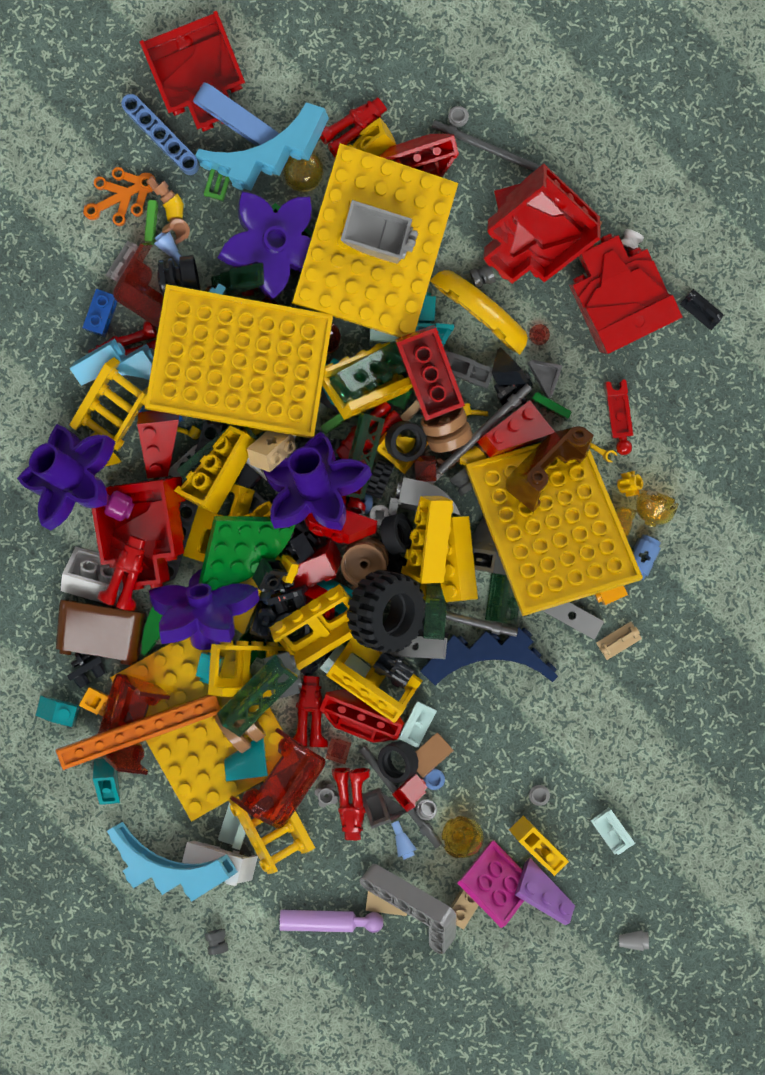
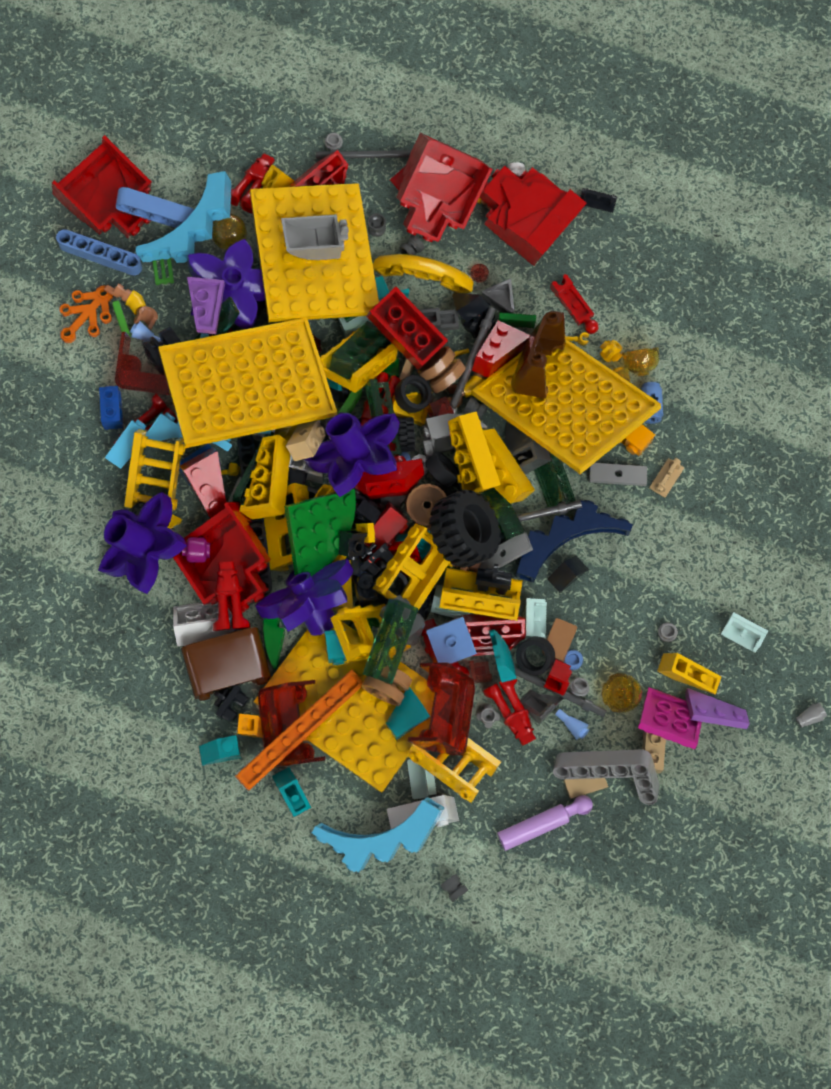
camera: 30 degrees left, 15 degrees down
(122, 261) = (111, 361): light grey hinge -> none
(235, 258) = (206, 302): none -> medium lavender wing
(321, 713) = (451, 641): none -> medium blue plate
(364, 752) = (503, 657): none -> teal slope
(455, 232) = (376, 225): none -> dark grey wheel
(472, 692) = (567, 573): none -> black slope

